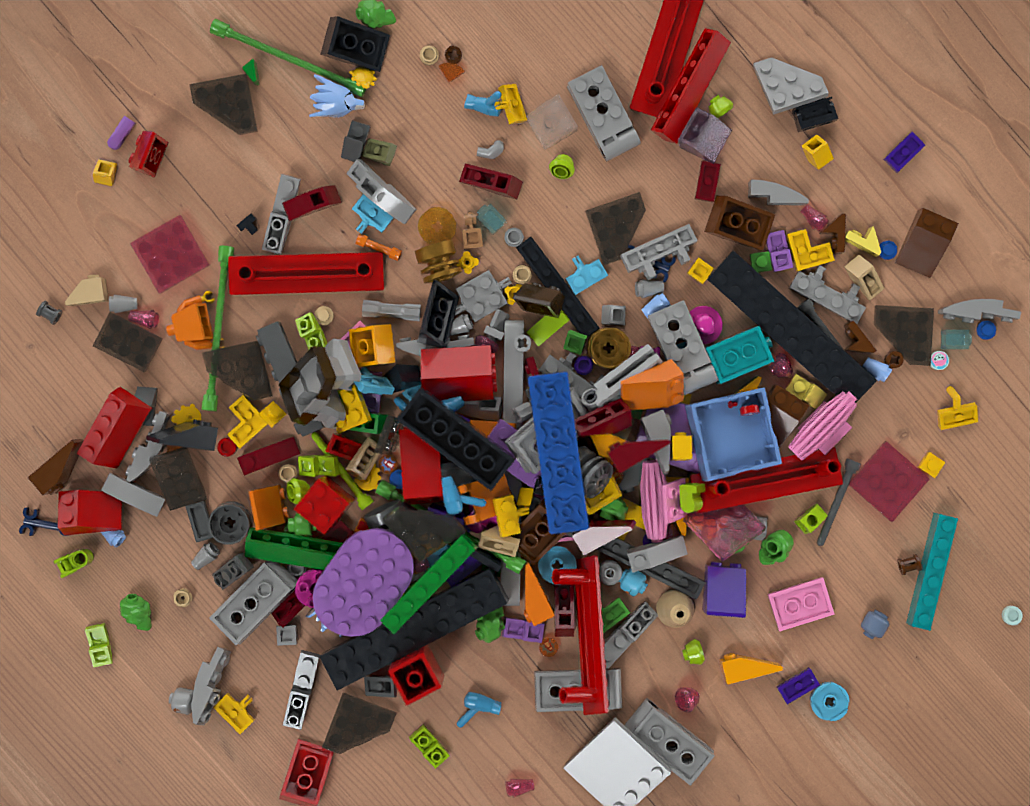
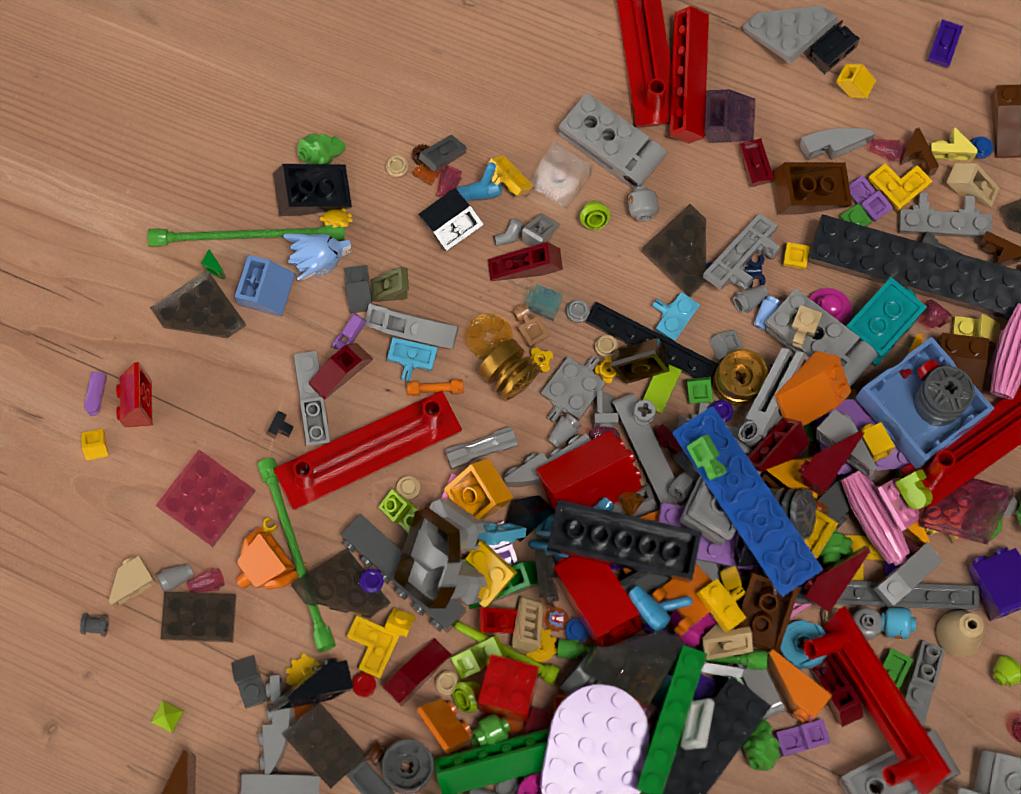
camera: 25 degrees left, 15 degrees down
(75, 404) = (167, 716): none -> lime slope
(114, 429) = (226, 720): red slope -> none
(213, 501) = (376, 754): none -> reddish brown bush
(263, 375) = (371, 580): none -> dark purple plate
(283, 107) = (264, 286): none -> medium blue slope
(333, 174) = (350, 330): none -> medium lavender bar
(438, 316) = (536, 427): black slope -> none
(447, 592) = (697, 724): none -> white tile
(449, 120) = (450, 219): none -> black slope
(462, 87) = (448, 180): none -> clear pink cone
(468, 62) = (443, 153): none -> dark grey plate
(479, 406) = (630, 502): none -> clear orange tile
(515, 160) = (539, 230): none -> light grey slope
(542, 408) = (705, 454): none -> bright green plate
(548, 647) = (840, 745): clear orange tile -> none
(603, 175) = (643, 204): none -> light grey head
(675, 333) = (805, 324): none -> tan plate
(720, 106) = (730, 80): lime cone -> none
(739, 439) = (944, 396): none -> dark grey wheel

